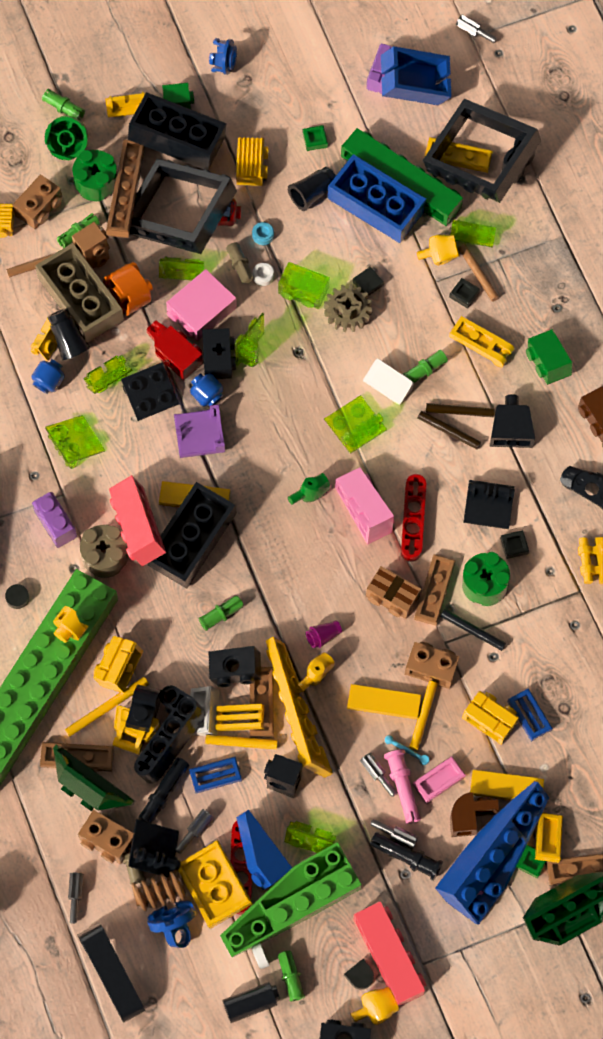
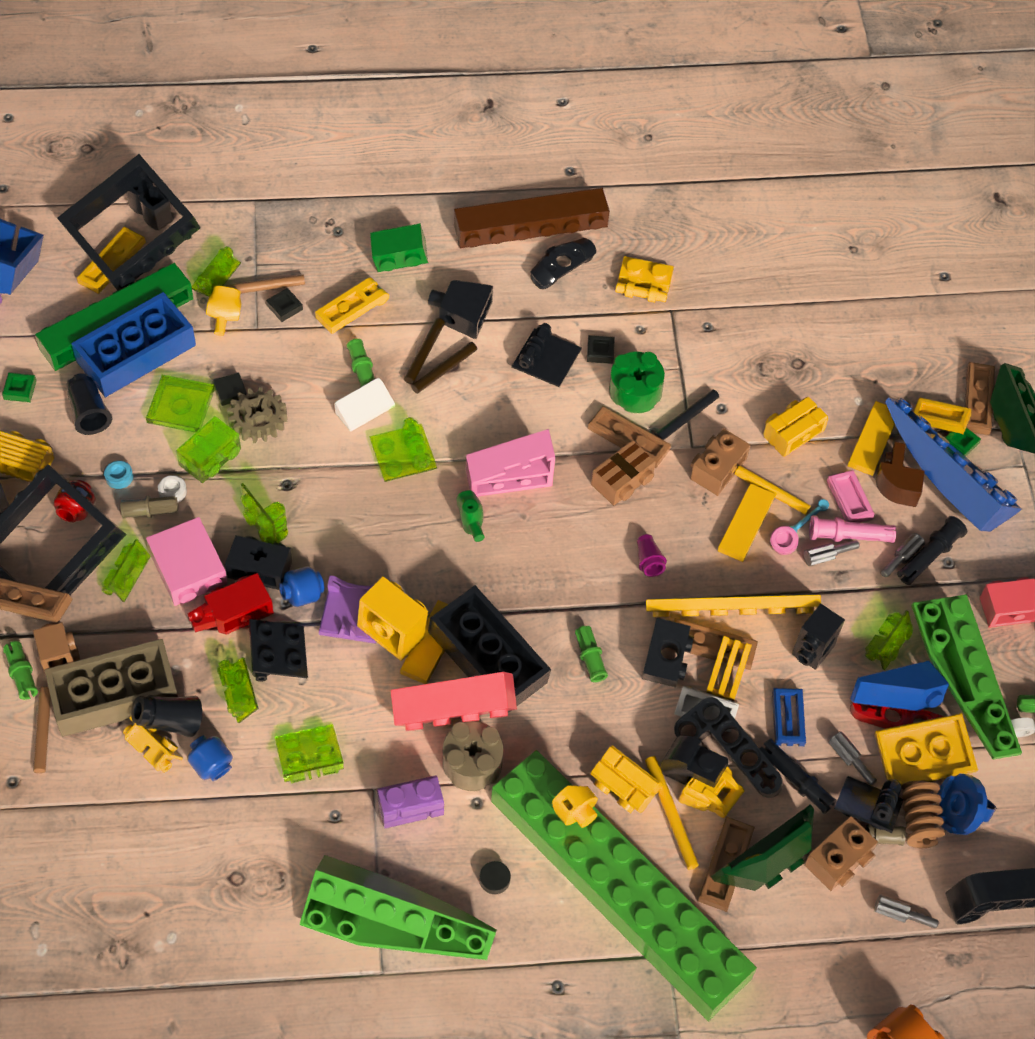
camera: 75 degrees left, 10 degrees down
(129, 288) = (132, 623): orange brick -> none
(189, 456) = (392, 618): none -> yellow brick
(241, 742) = (755, 679): yellow bar -> none
(316, 671) = (695, 573): yellow piece -> none
(341, 252) = (180, 403): none -> clear neon green tile
(375, 734) = (784, 540): none -> bright pink tile
(413, 517) = (538, 424): red beam -> none
(539, 732) = (781, 401): blue tile -> none

